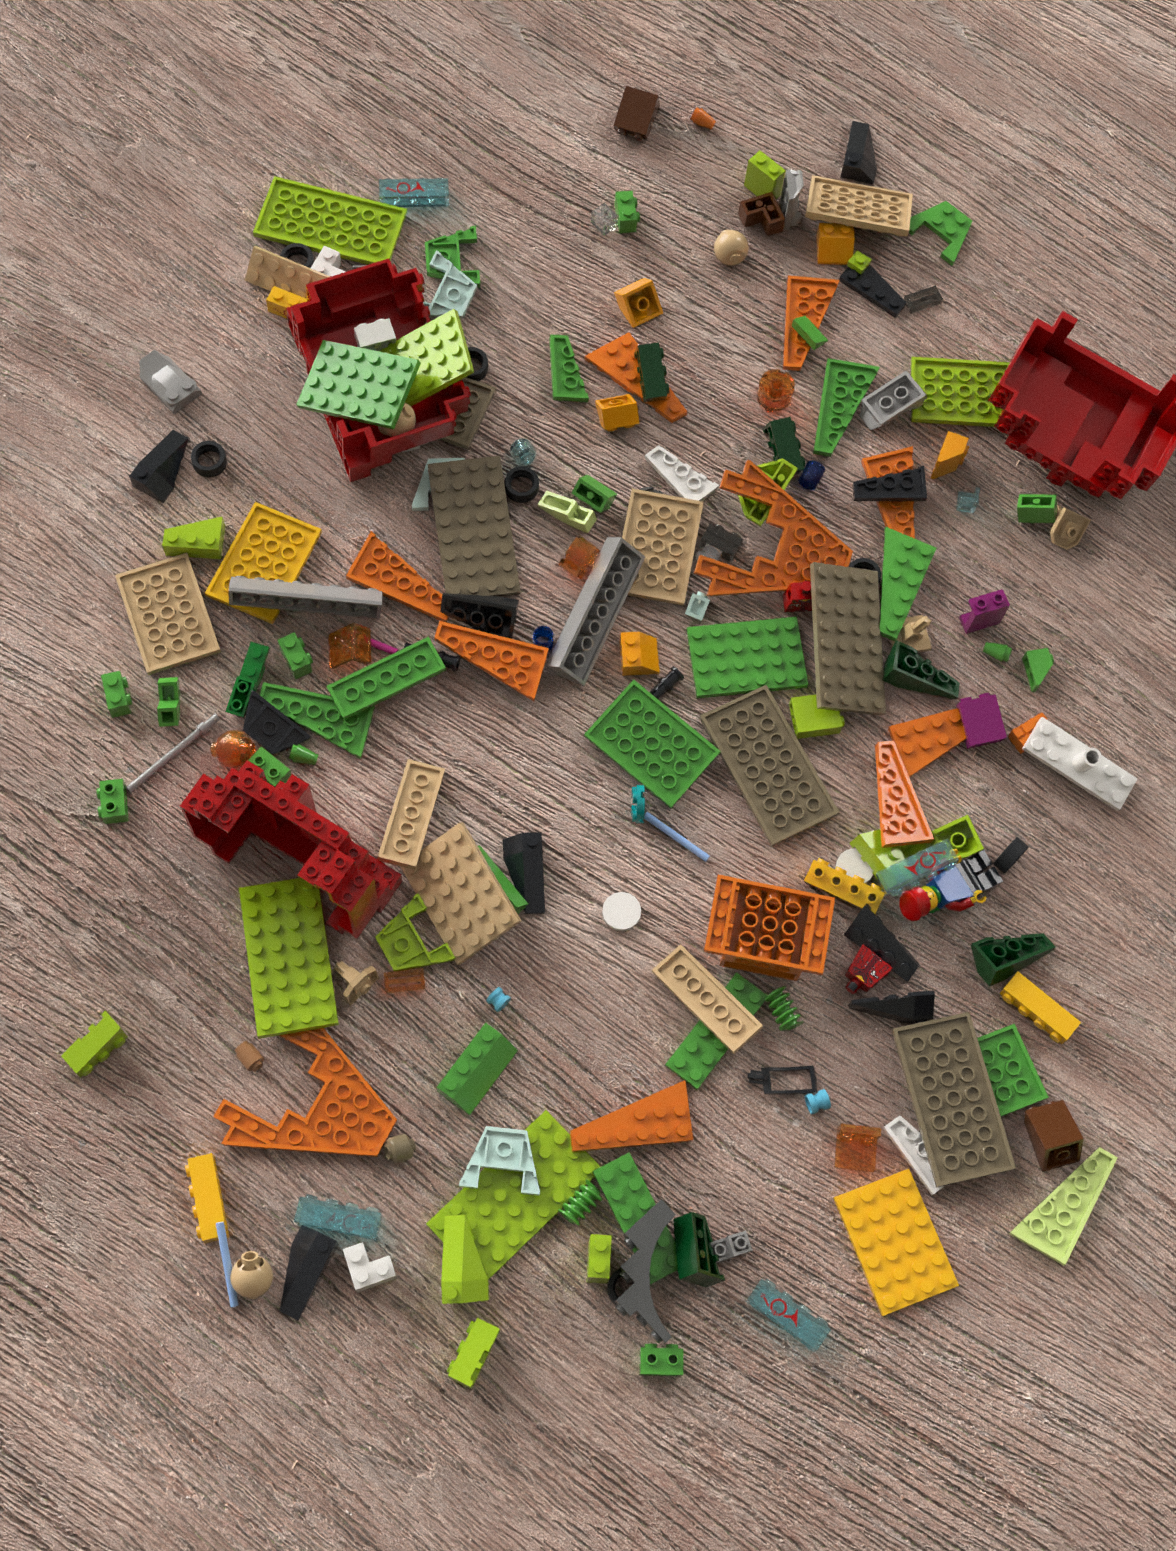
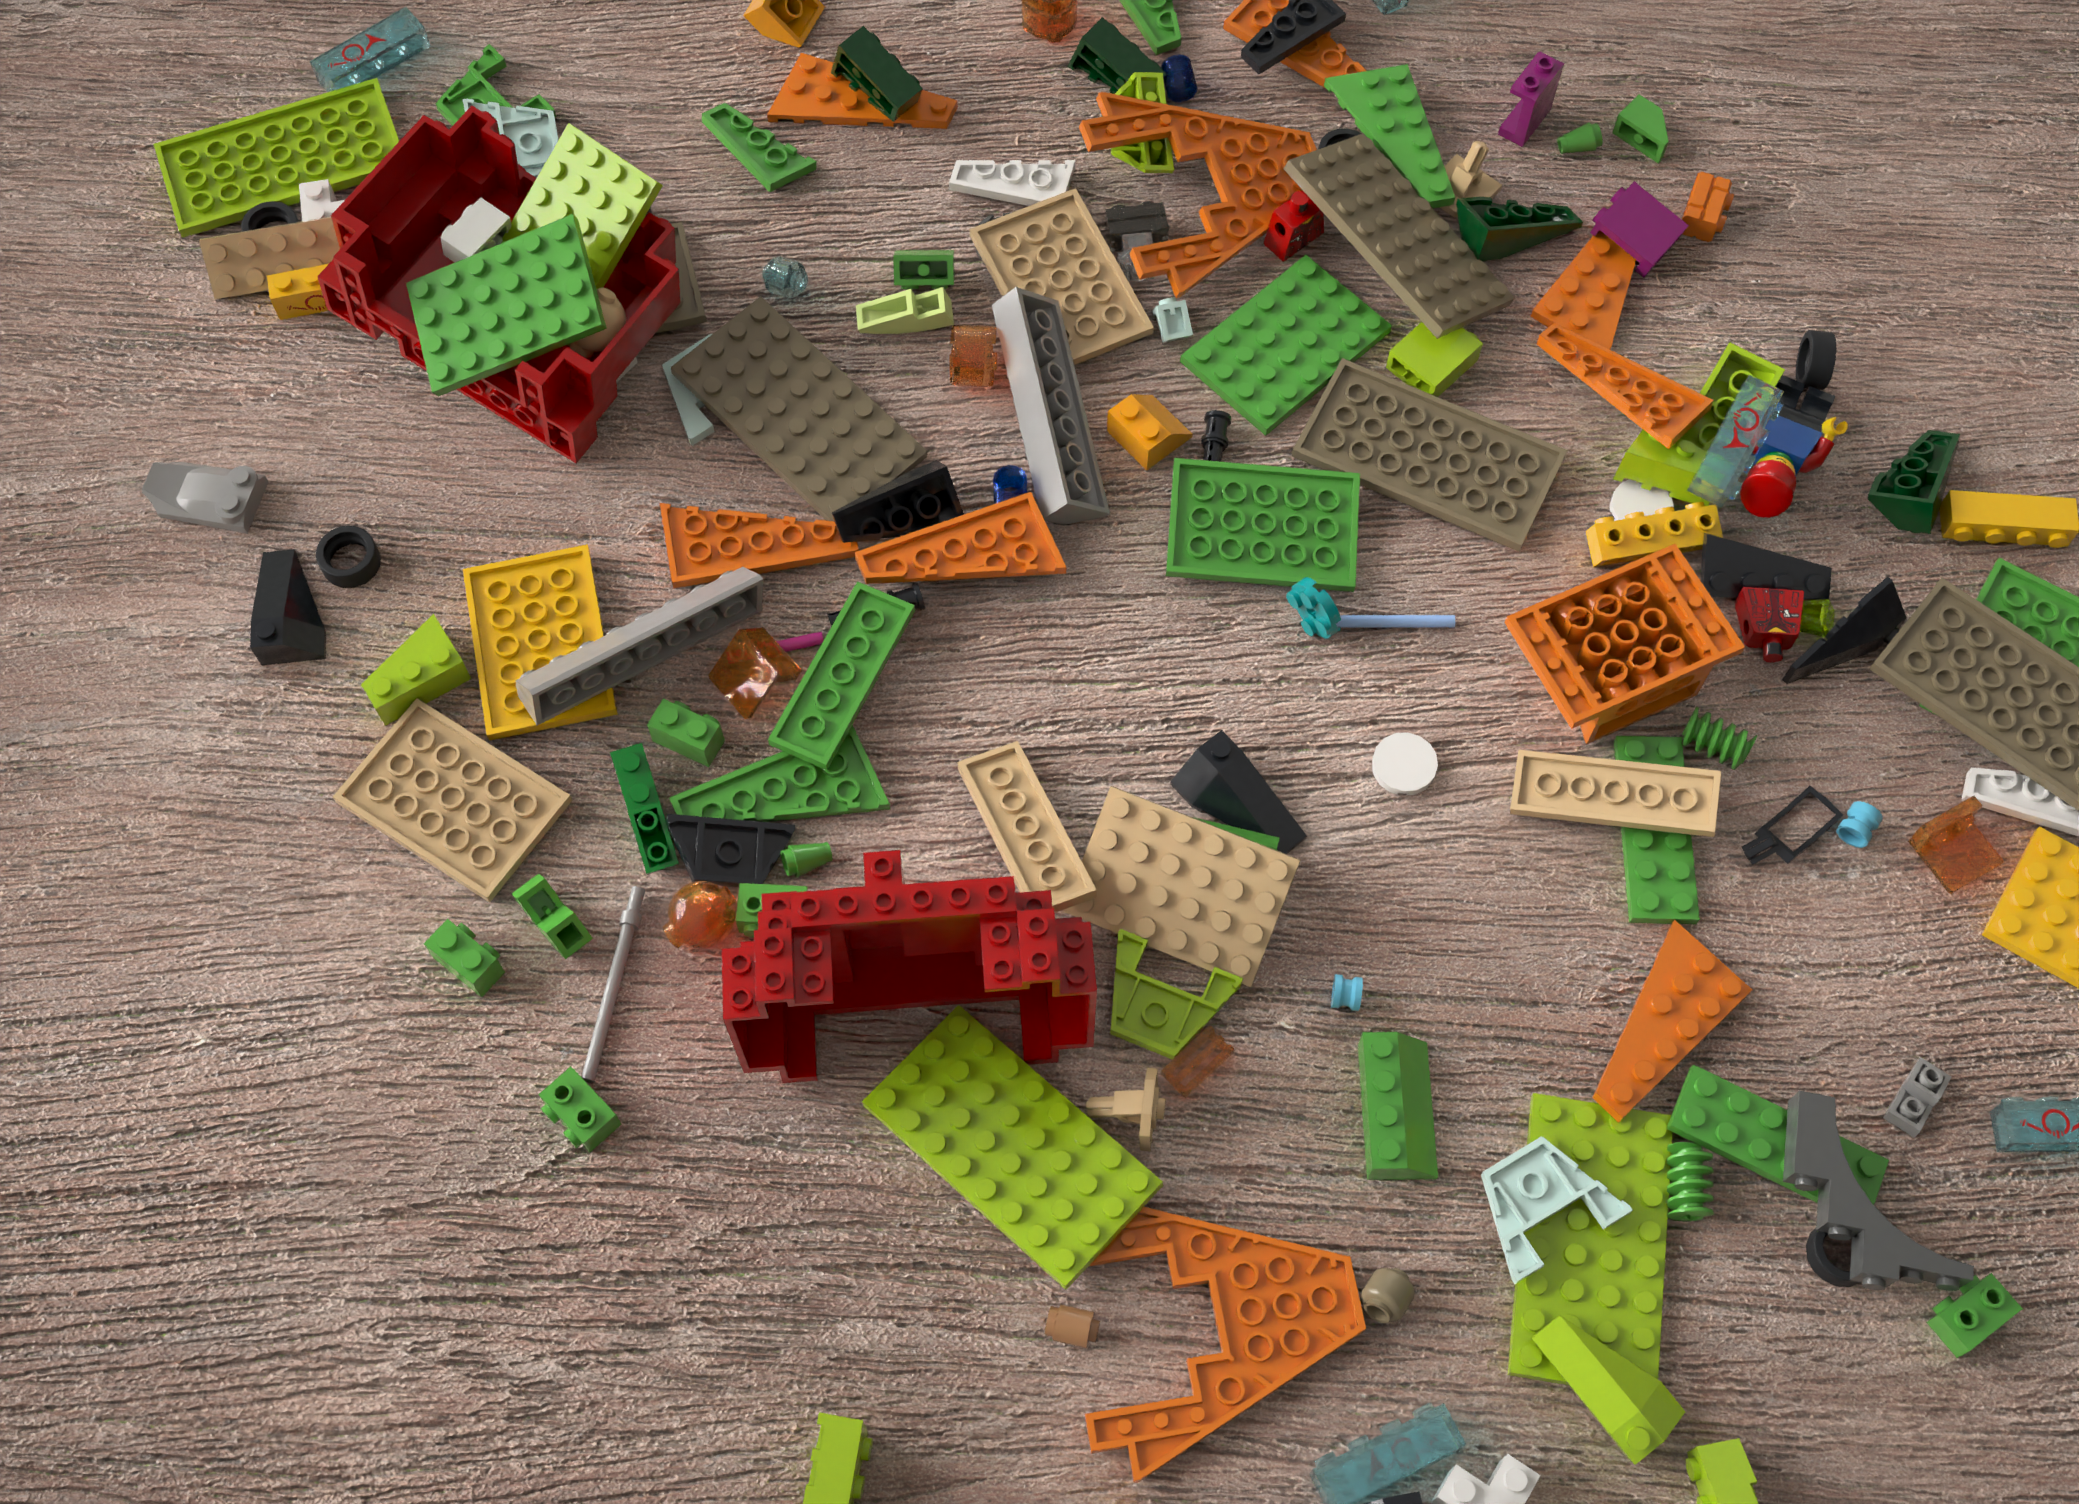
camera: 30 degrees left, 5 degrees down
(521, 497) = (818, 299): black tyre -> none
(598, 1259) = (1784, 1236): lime brick -> none
(617, 412) = (869, 154): light orange slope -> none
(694, 1251) = (1888, 1131): dark green wedge -> none
(892, 985) = (1817, 617): none -> clear neon green slope
(1079, 763) = (1794, 202): white plate -> none

